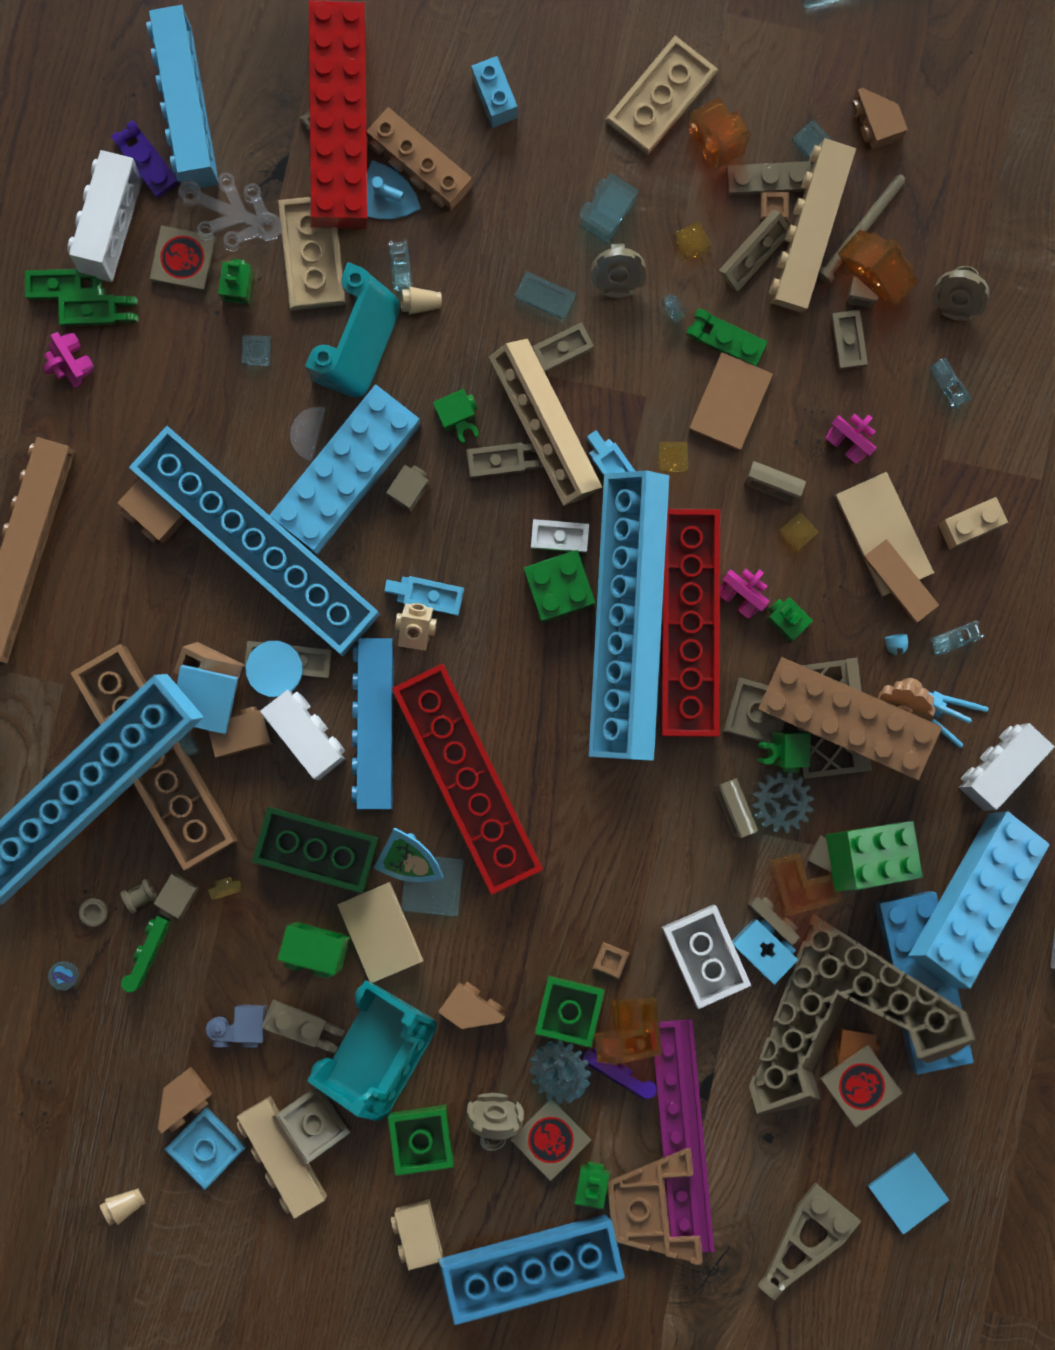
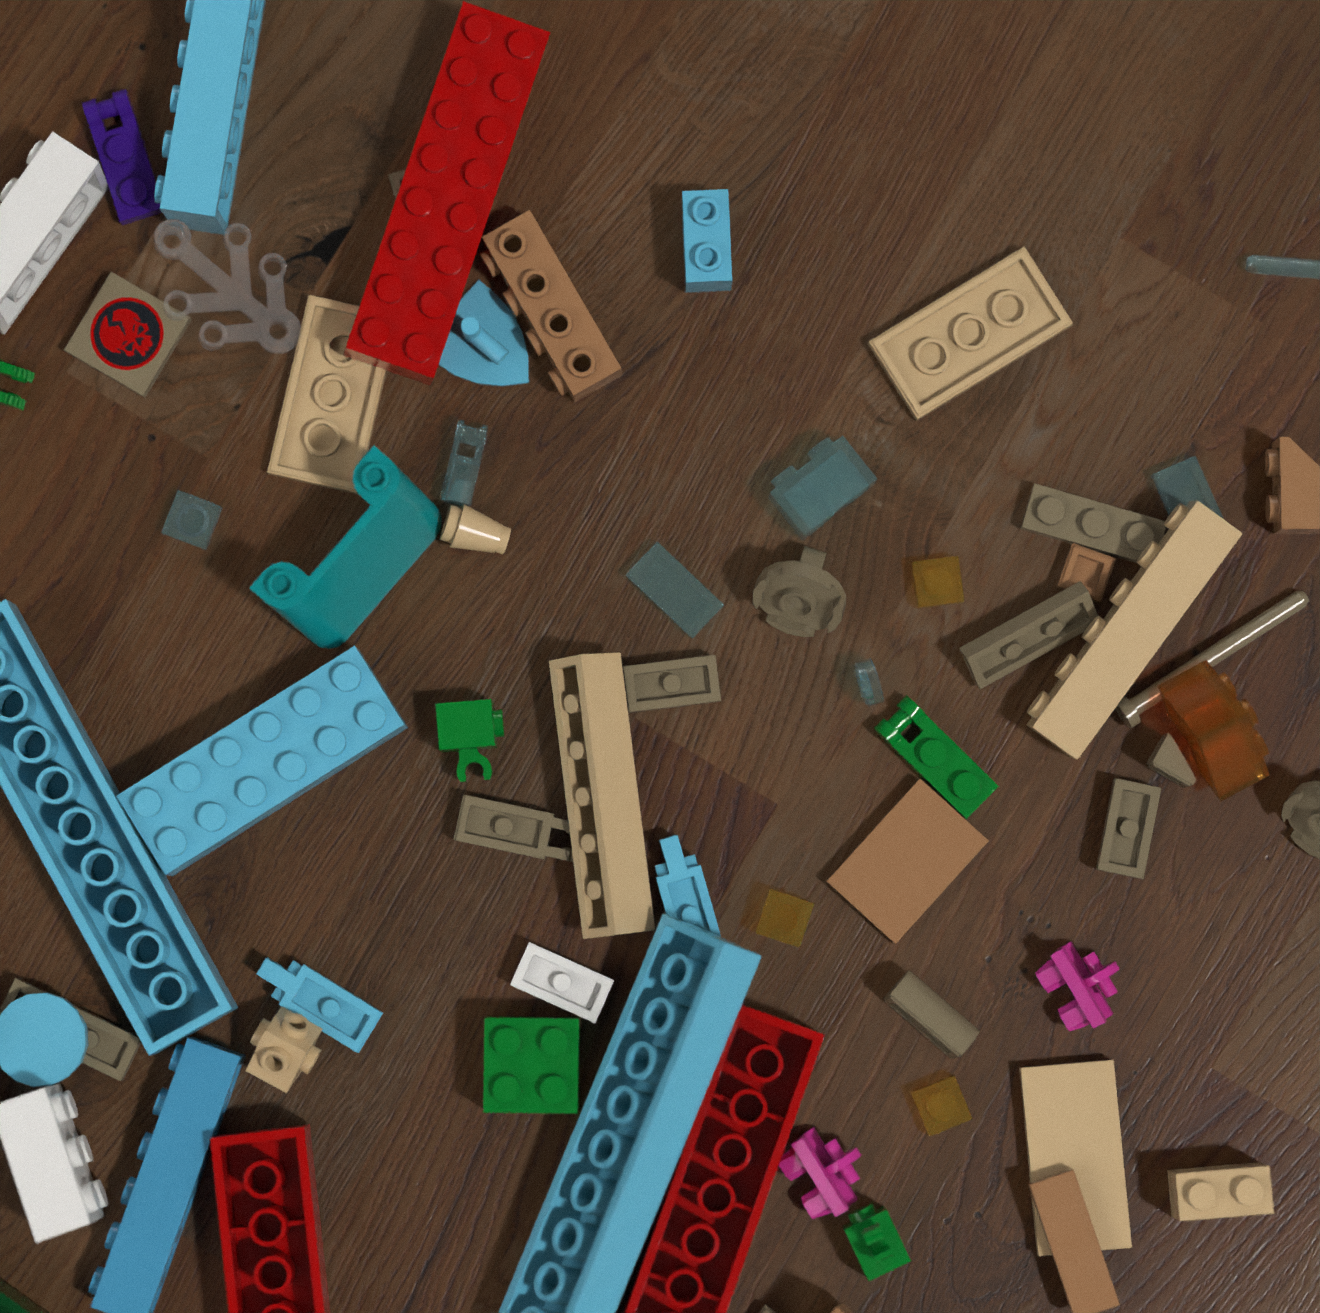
camera: 20 degrees right, 0 degrees up
(236, 282) = (197, 402): green brick -> none
(306, 431) = (223, 677): clear plate -> none
(408, 487) = (352, 822): dark tan brick -> none
(720, 133) = (1038, 428): clear orange brick -> none
(947, 378) = (1261, 945): clear light blue bar -> none

